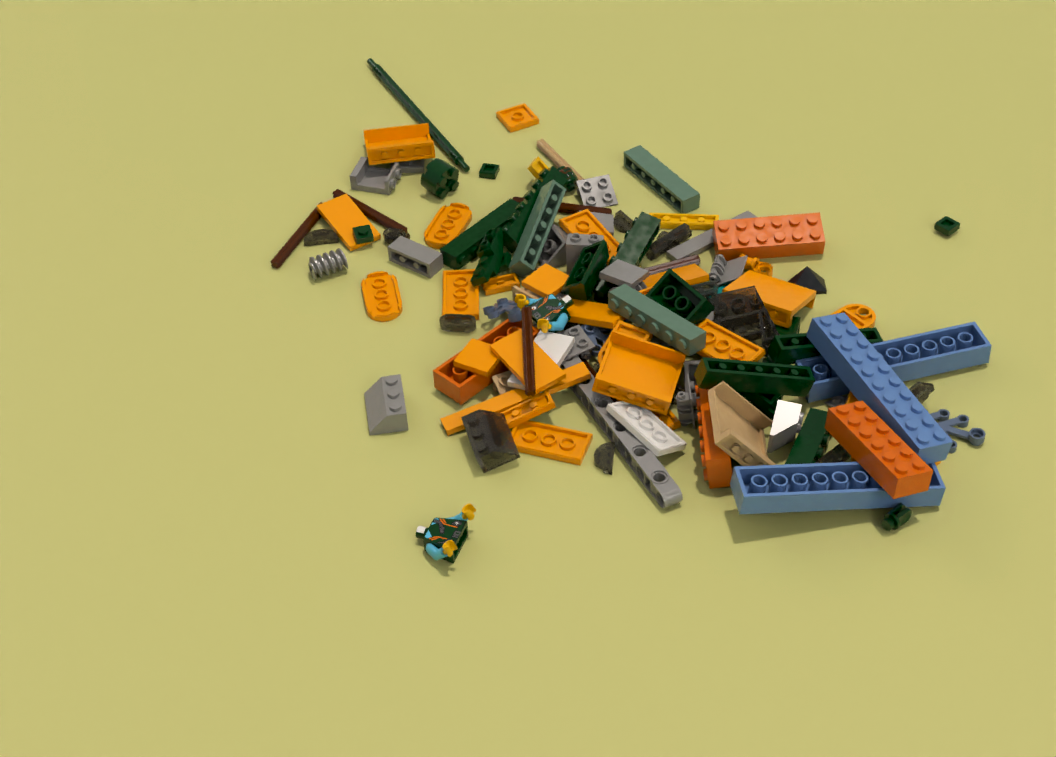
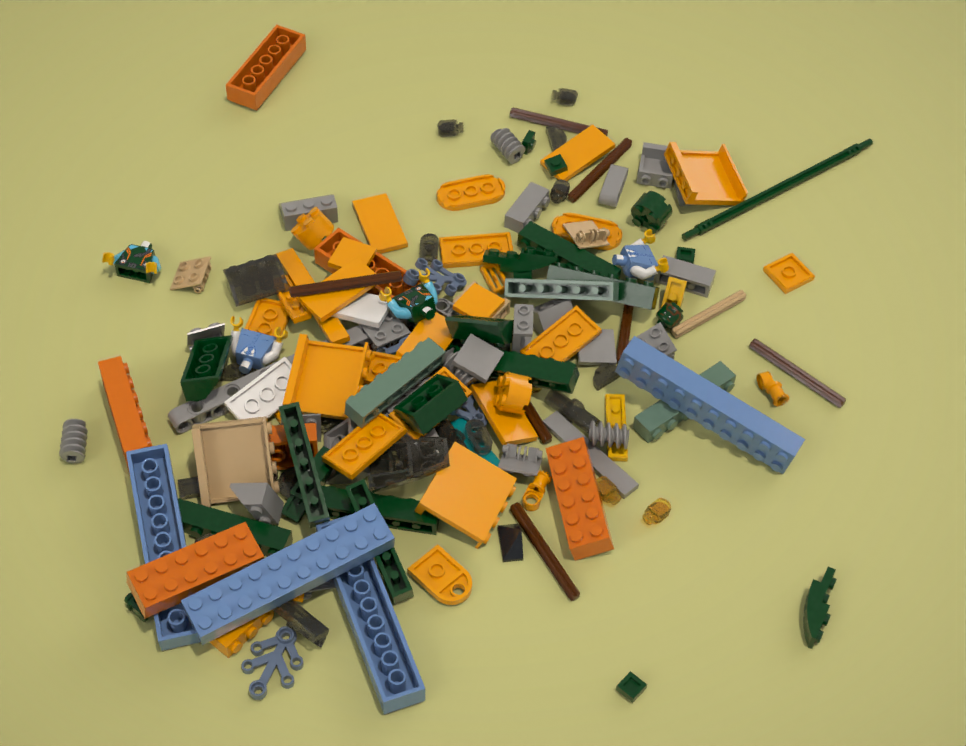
camera: 80 degrees right, 10 degrees up
(158, 436) = (266, 67): none -> orange brick
(264, 227) = (565, 96): none -> clear smoke arm
(289, 304) = (449, 127): none -> clear smoke arm
(322, 247) = (529, 141): none -> dark green plate
(395, 203) = (613, 185): none -> light grey beam
(413, 357) = (380, 223): none -> light orange tile
(417, 391) = (312, 228): none -> light orange brick
(465, 490) = (192, 274): none -> tan hinge
(467, 215) = (587, 234): none -> tan hinge
(499, 189) = (639, 260): none -> torso
(515, 170) = (698, 278): none -> light grey brick
(562, 475) = (213, 330): none -> light grey hinge
(585, 435) = (255, 348): none -> torso
(615, 461) = (204, 367): none -> dark green slope
(629, 122) = (797, 373): none -> reddish brown axle
(649, 133) = (772, 387): none -> light orange connector
(659, 251) = (512, 393): none -> light orange brick
(668, 529) = (124, 405): none -> orange brick
(680, 152) = (709, 405): none -> medium blue brick
(697, 575) = (73, 441): none -> light grey piece
(702, 216) = (608, 434): none -> light grey piece
(776, 202) = (657, 511): none -> clear yellow arm
(823, 264) = (545, 551): none -> reddish brown axle
(869, 132) = (816, 607): none -> dark green slope

